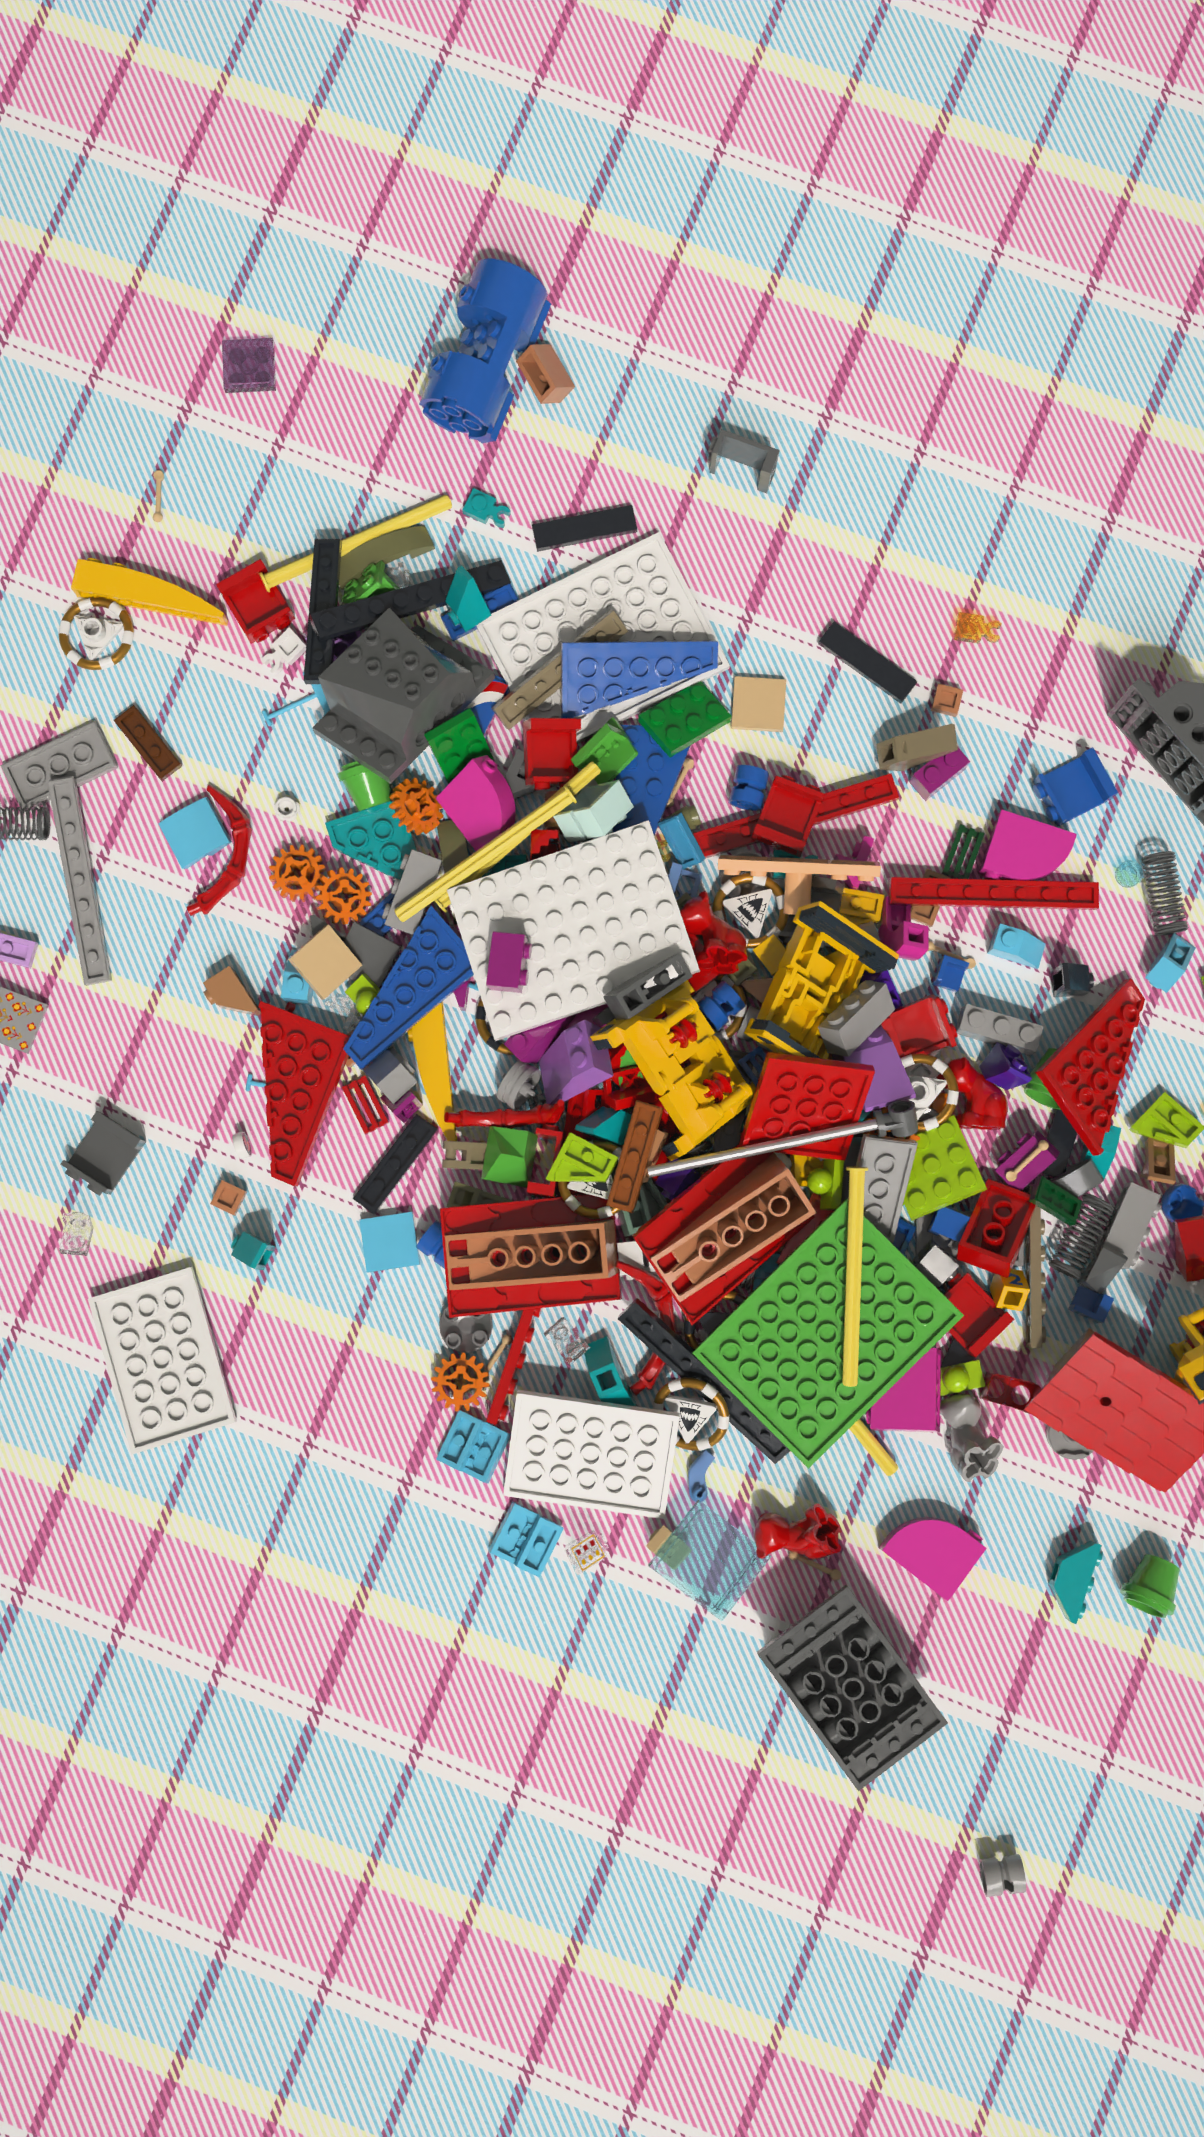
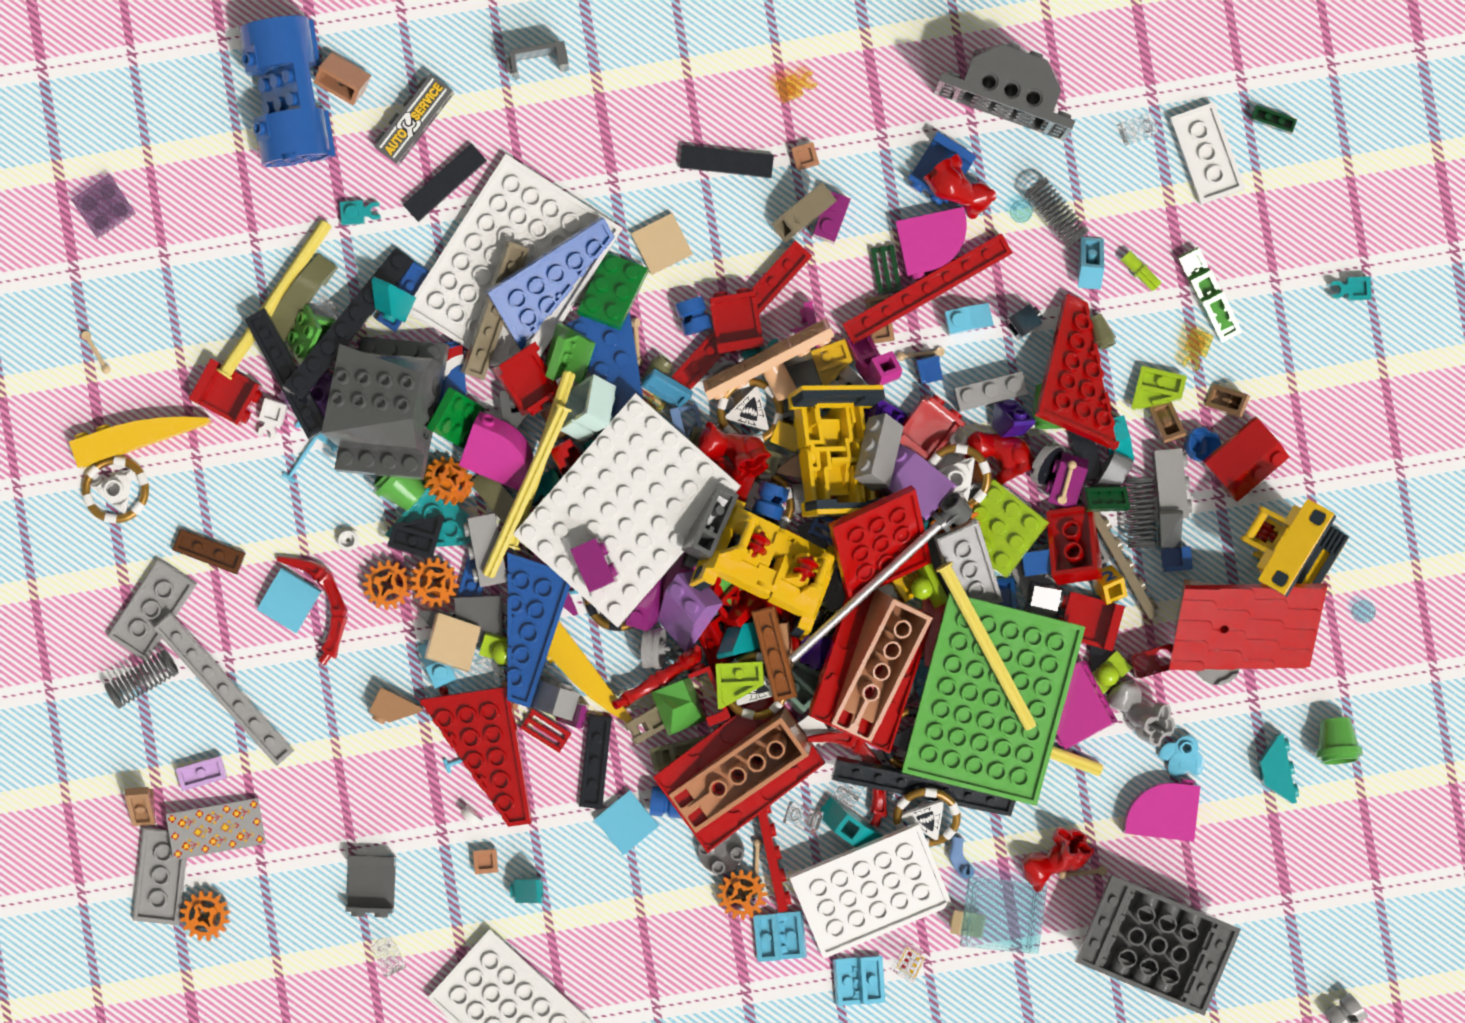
camera: 35 degrees left, 5 degrees up
(353, 841) = (417, 537): none -> black wing
(590, 451) = (414, 119): none -> brick
(626, 1344) = (848, 793): none -> clear bracket
(981, 1510) = (1181, 760): none -> medium azure plate
(1013, 1130) = (1044, 463): none -> tile
(1078, 802) = (951, 184): none -> red animal
(1143, 1037) = (1102, 332): none -> olive cone

